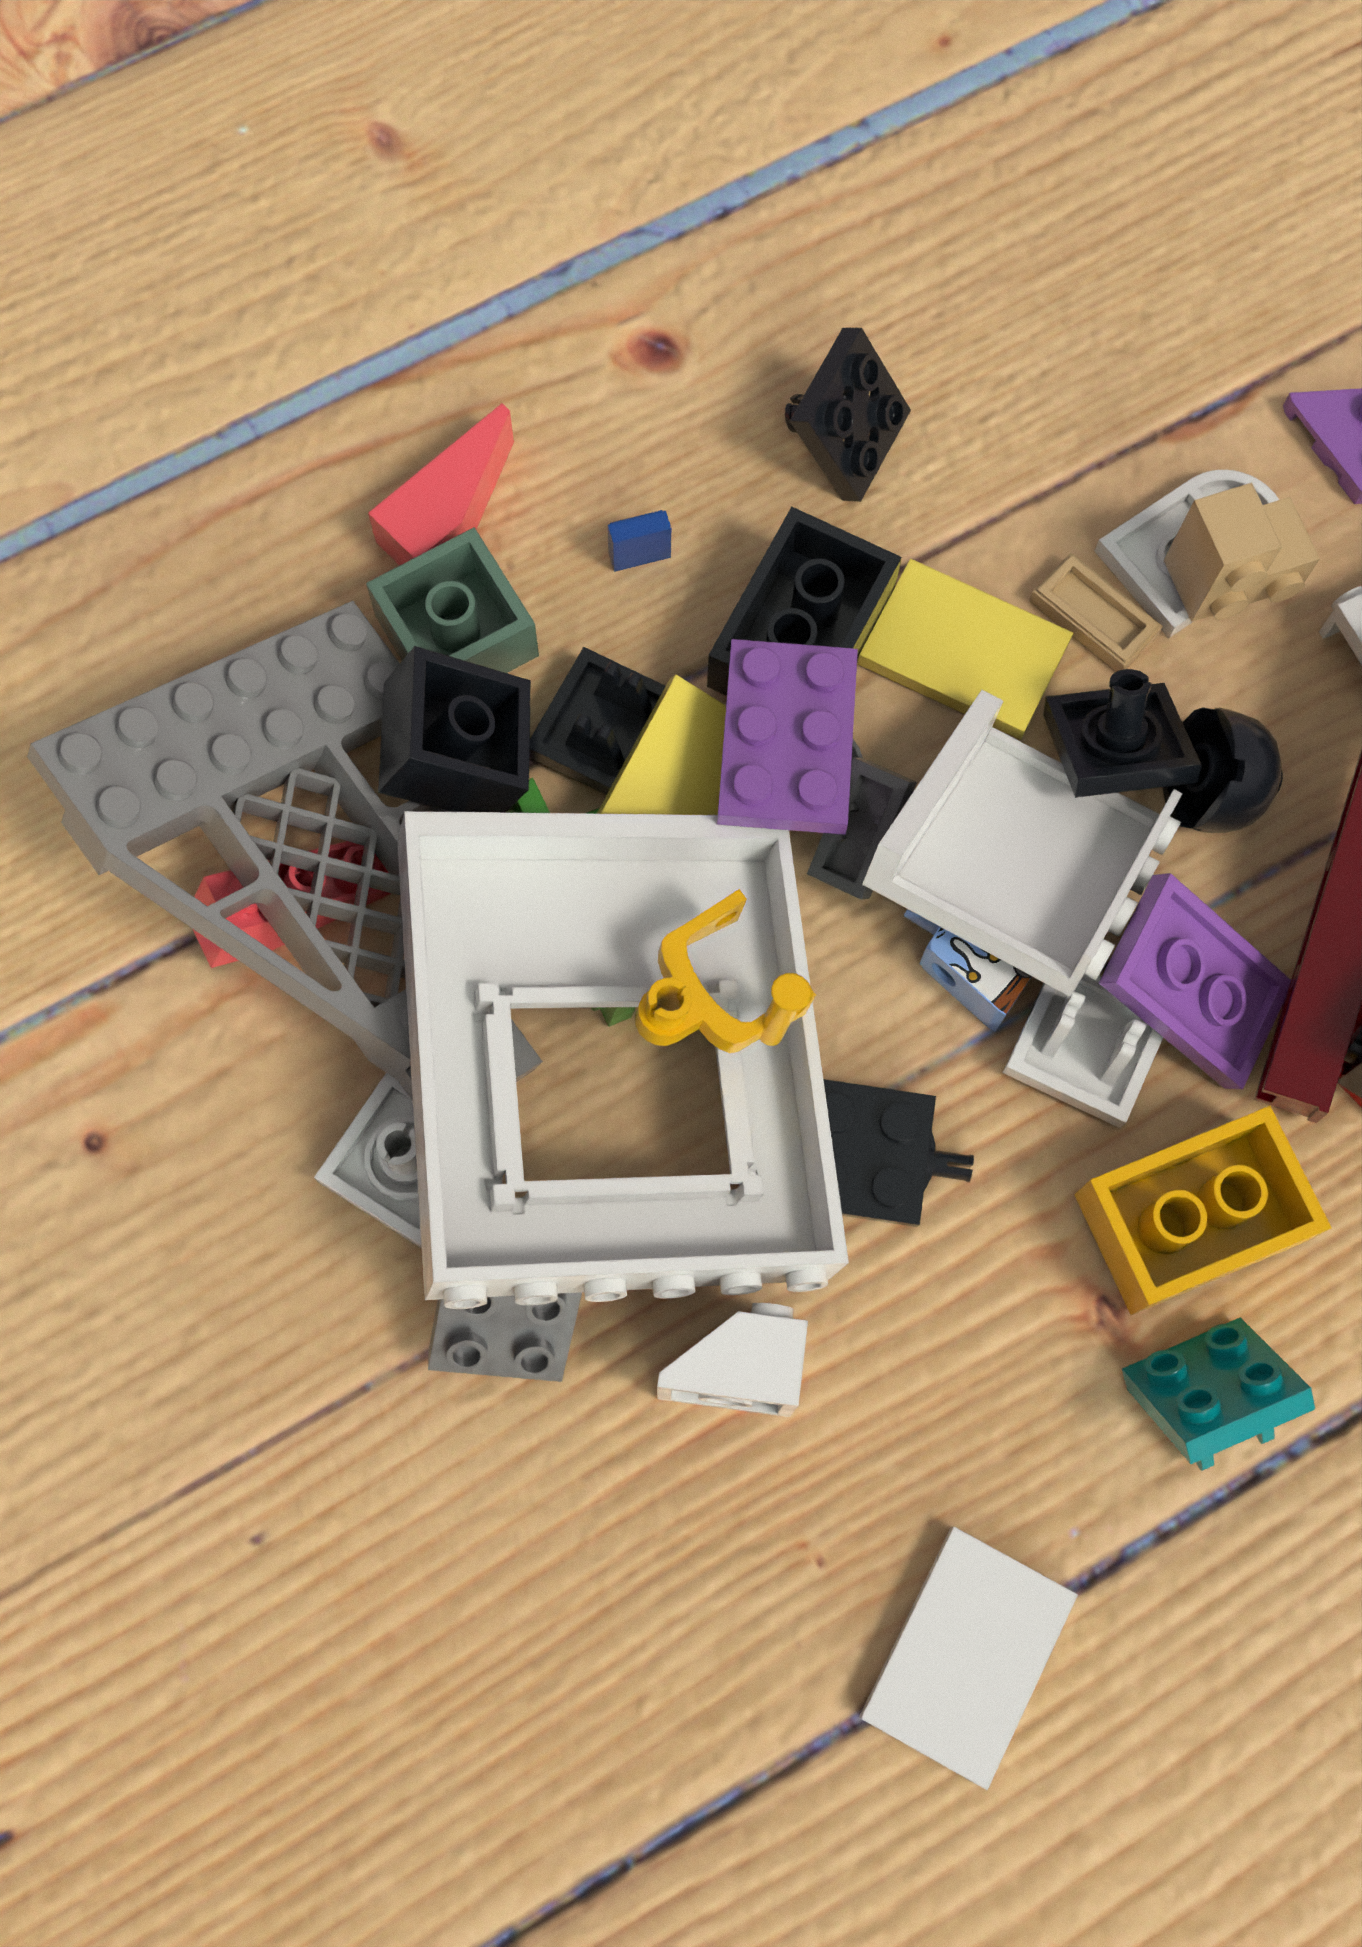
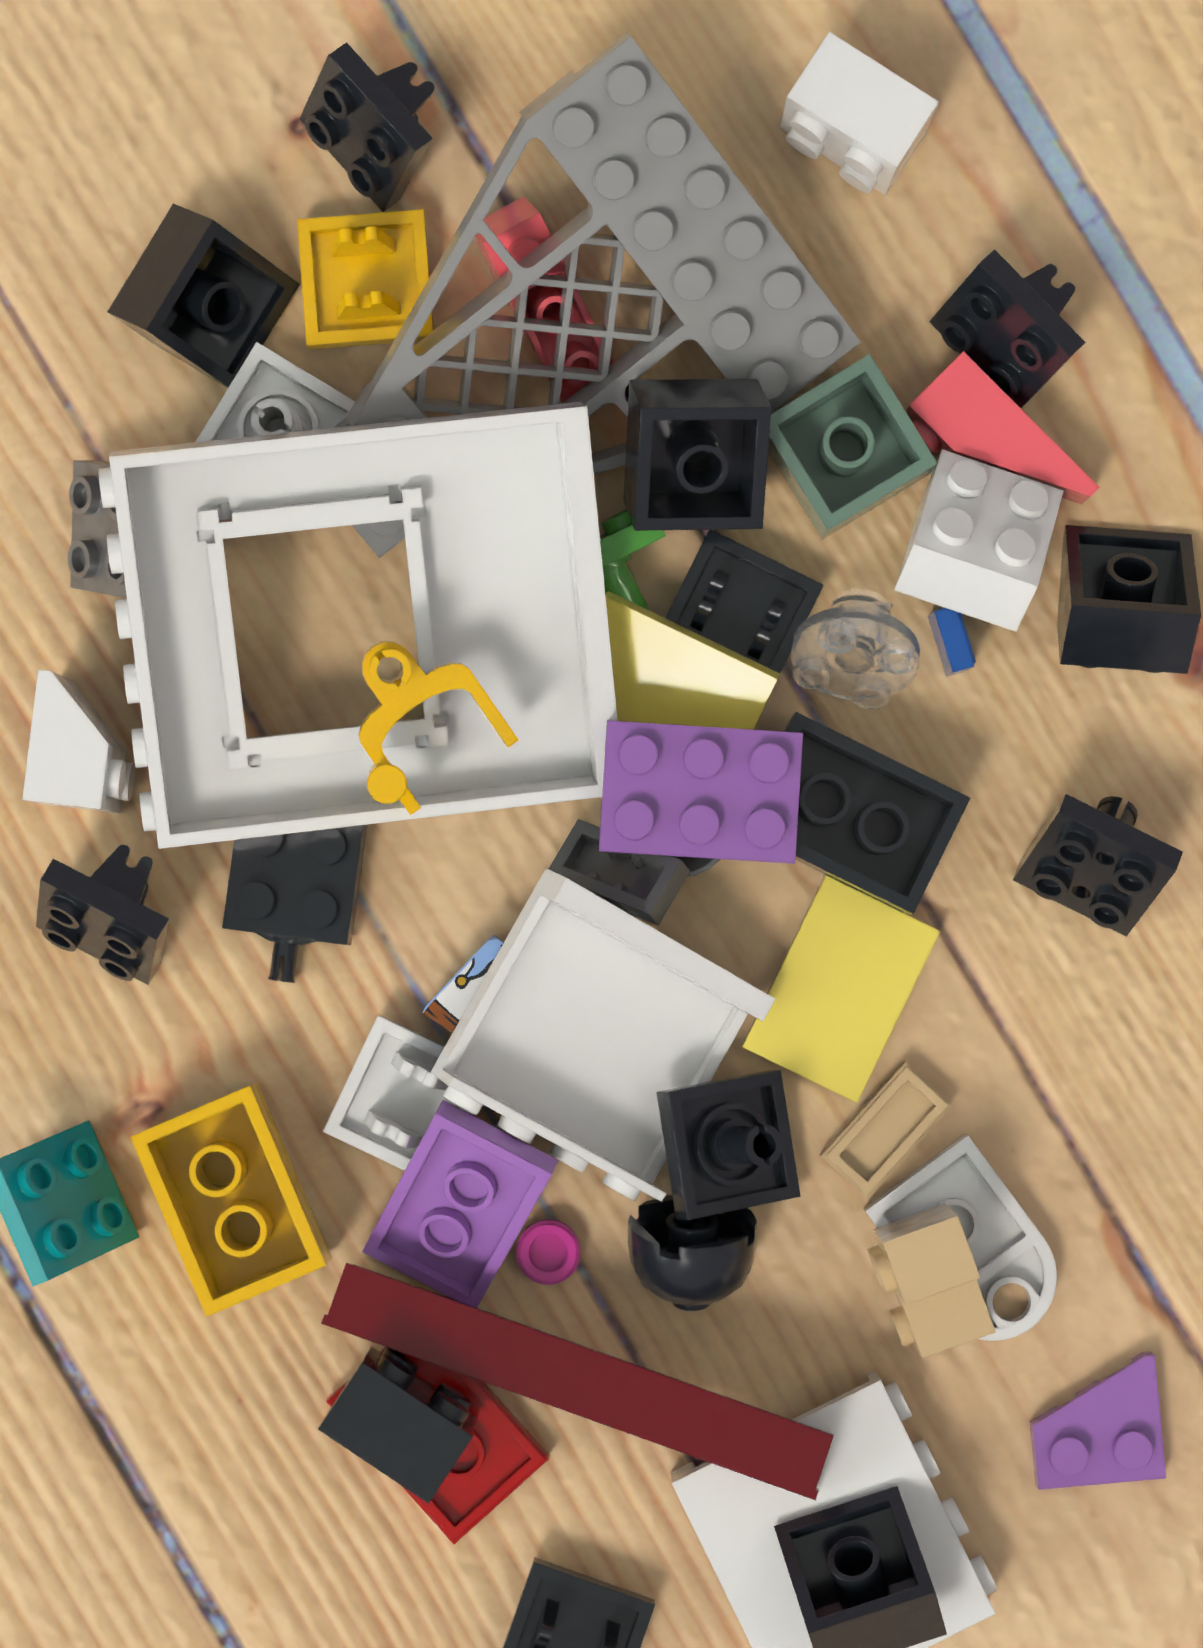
camera: 90 degrees right, 15 degrees up
(97, 1053) = (369, 123): none -> black plate
(134, 596) = (856, 115): none -> white brick
(256, 1071) = (362, 276): none -> yellow plate
(260, 1234) = (203, 295): none -> black slope
(346, 471) = (1010, 325): none -> black plate
(549, 501) = (979, 540): none -> white brick
(605, 394) = (1127, 599): none -> black slope
(646, 615) = (856, 650): none -> clear plate
(913, 1335) = (104, 915): none -> black plate
(1236, 907) = (548, 1251): none -> dark pink tile

